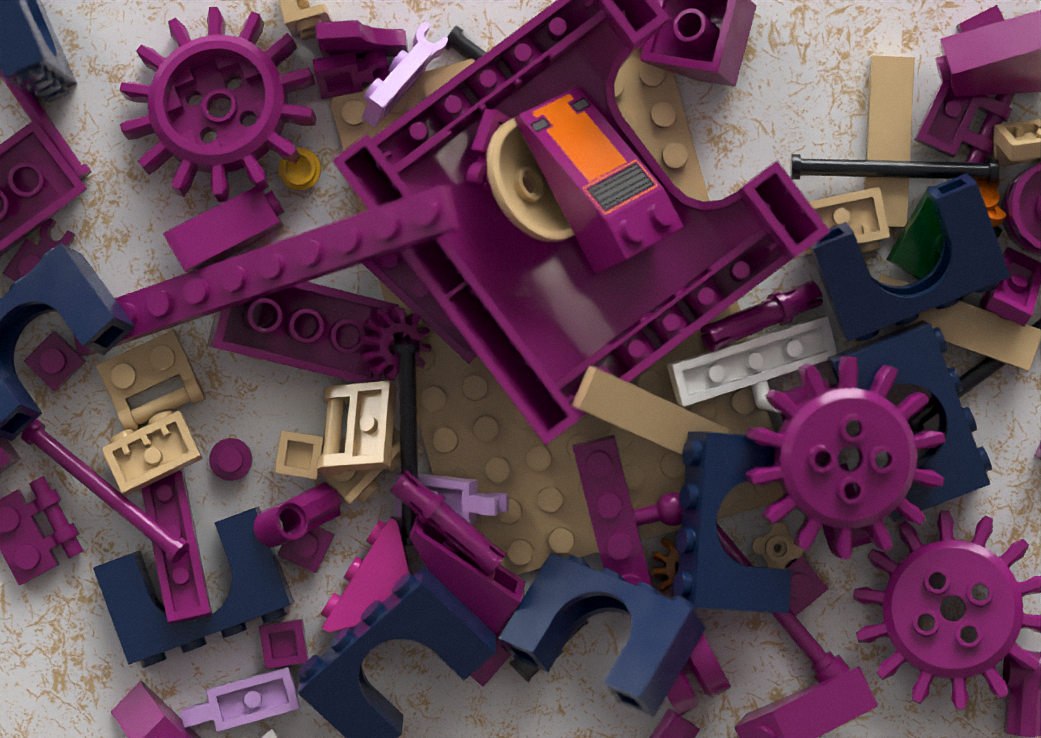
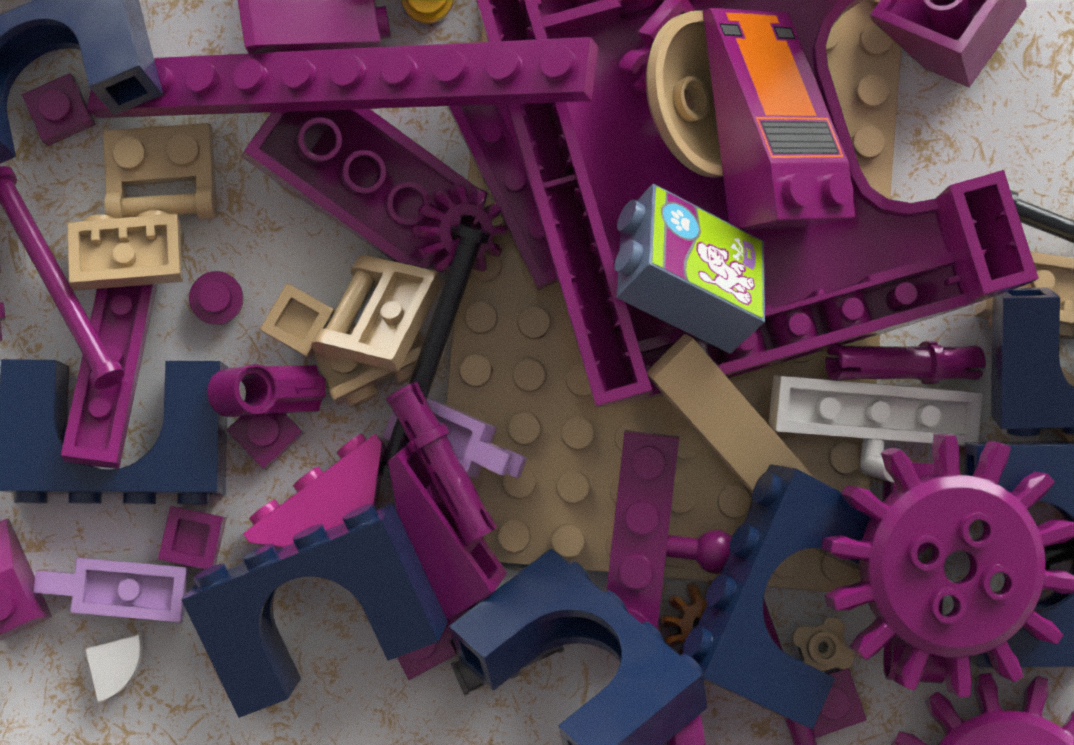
camera: 15 degrees right, 5 degrees down
(576, 317) = (690, 269): none -> brick

